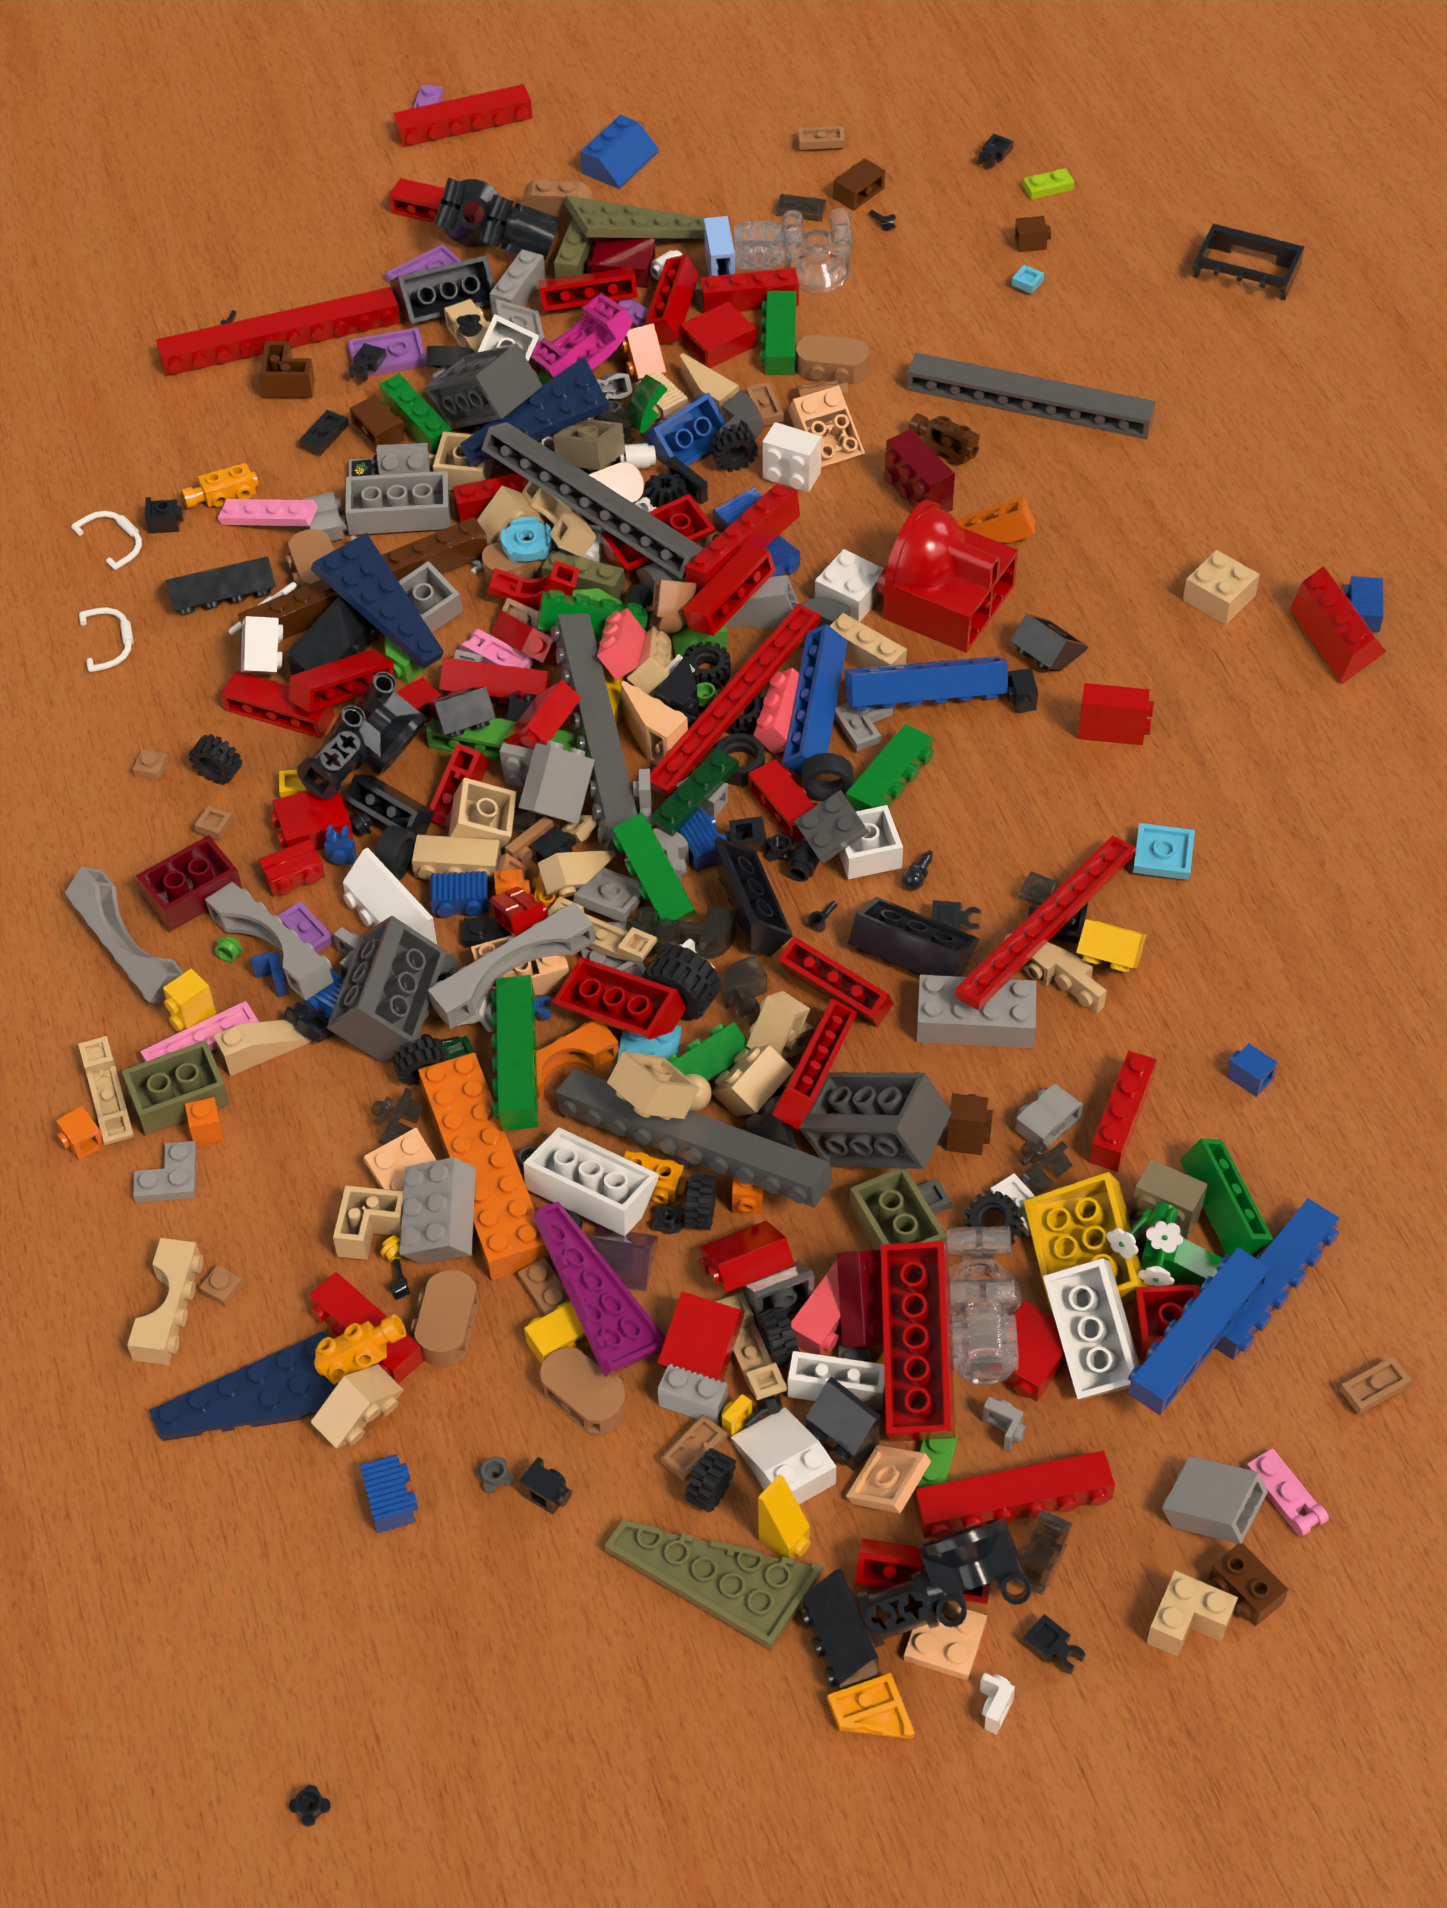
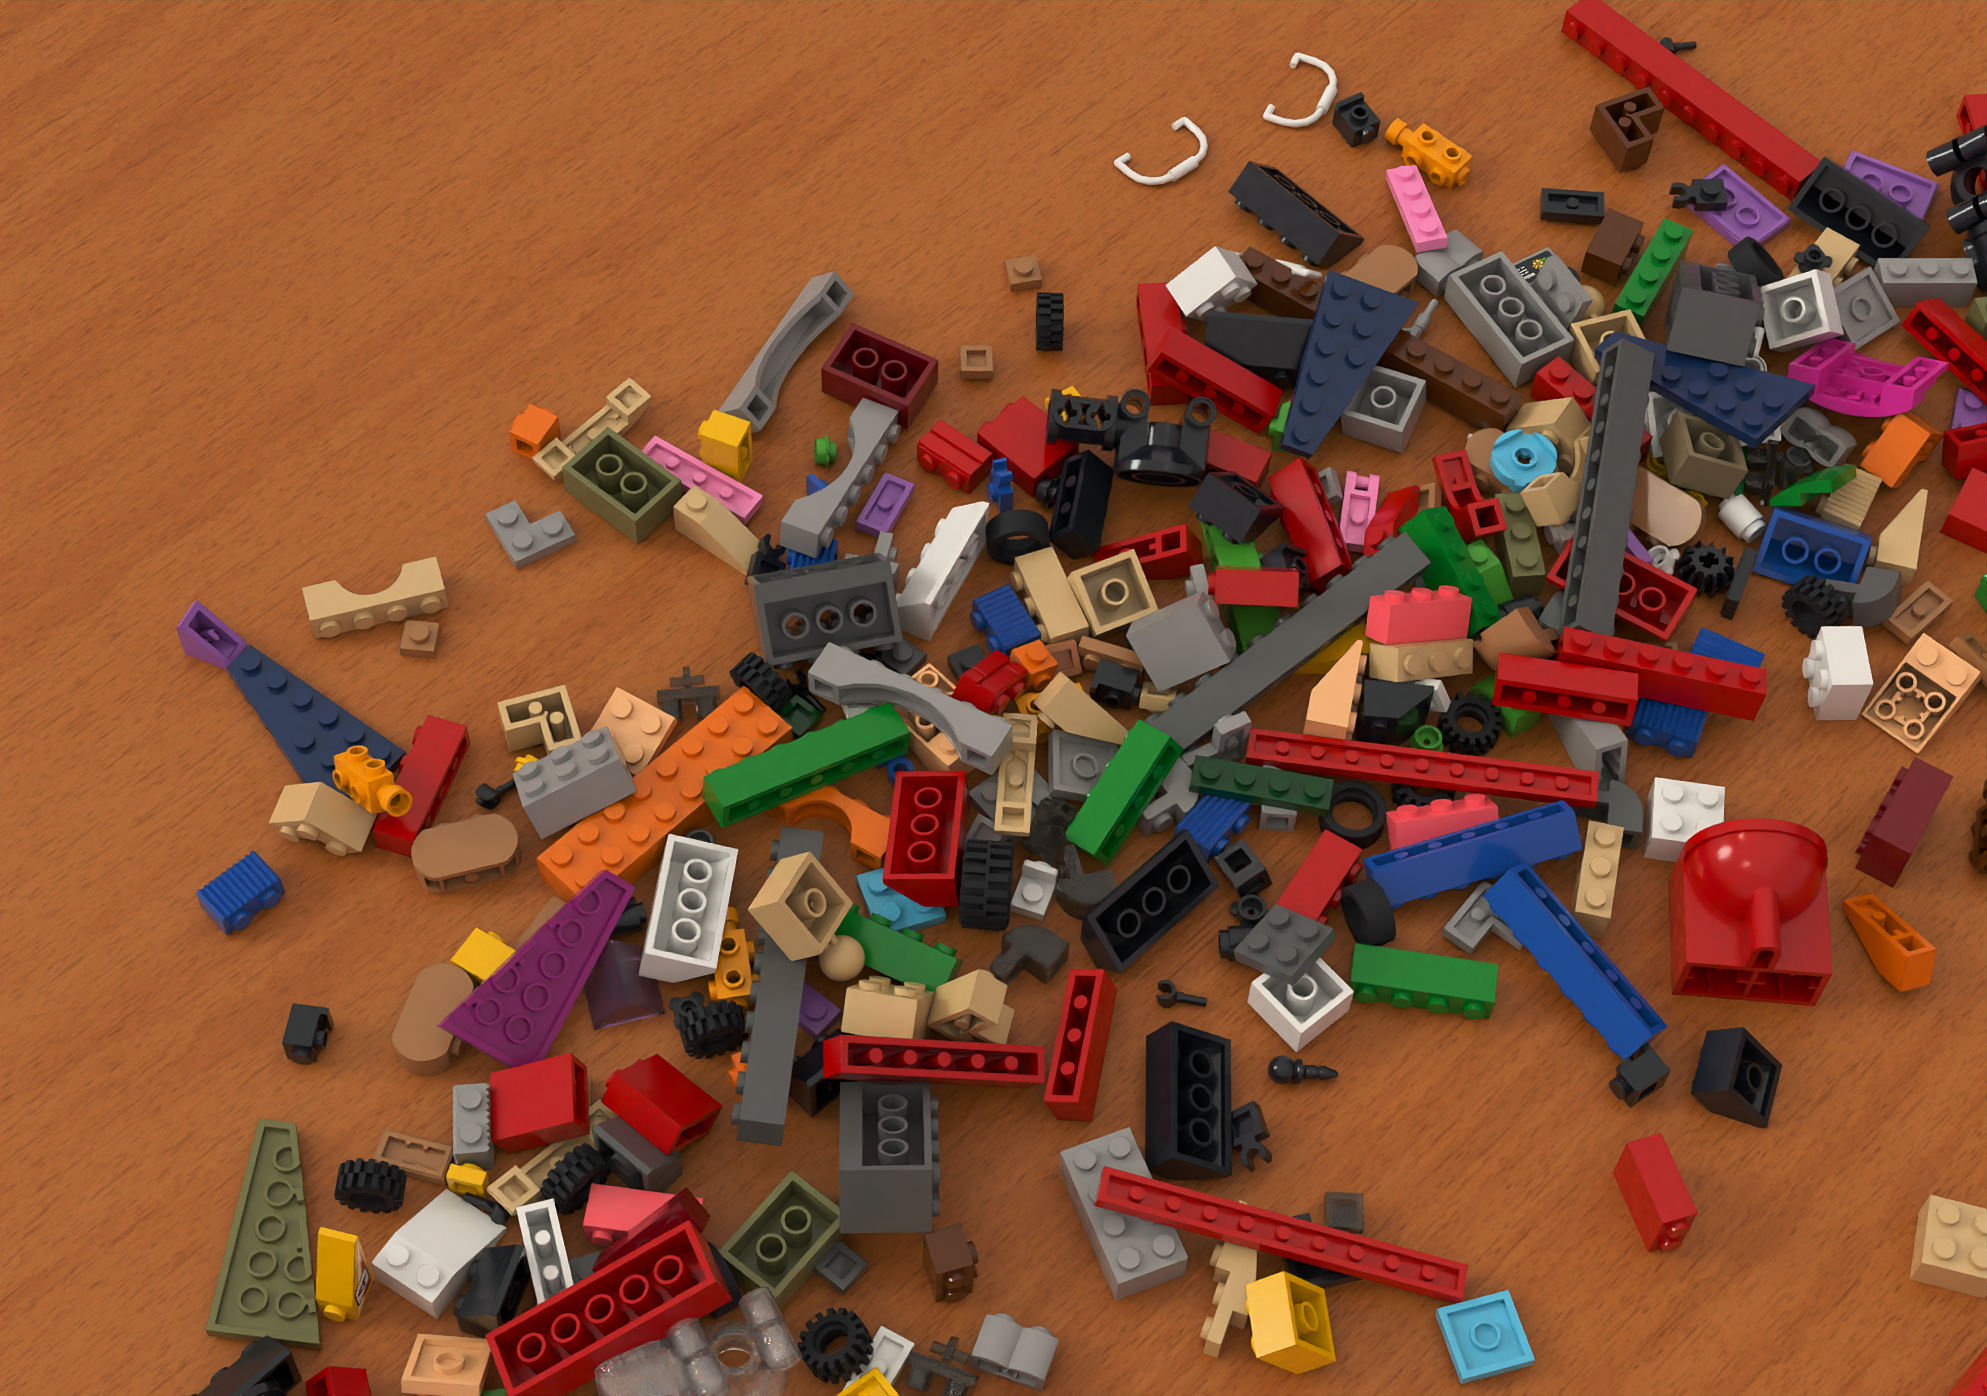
camera: 60 degrees right, 5 degrees up
(126, 1437) = (208, 637): none -> medium lavender slope
(204, 1121) = (597, 530): orange brick -> none
(491, 1466) = (305, 972): dark grey plate -> none

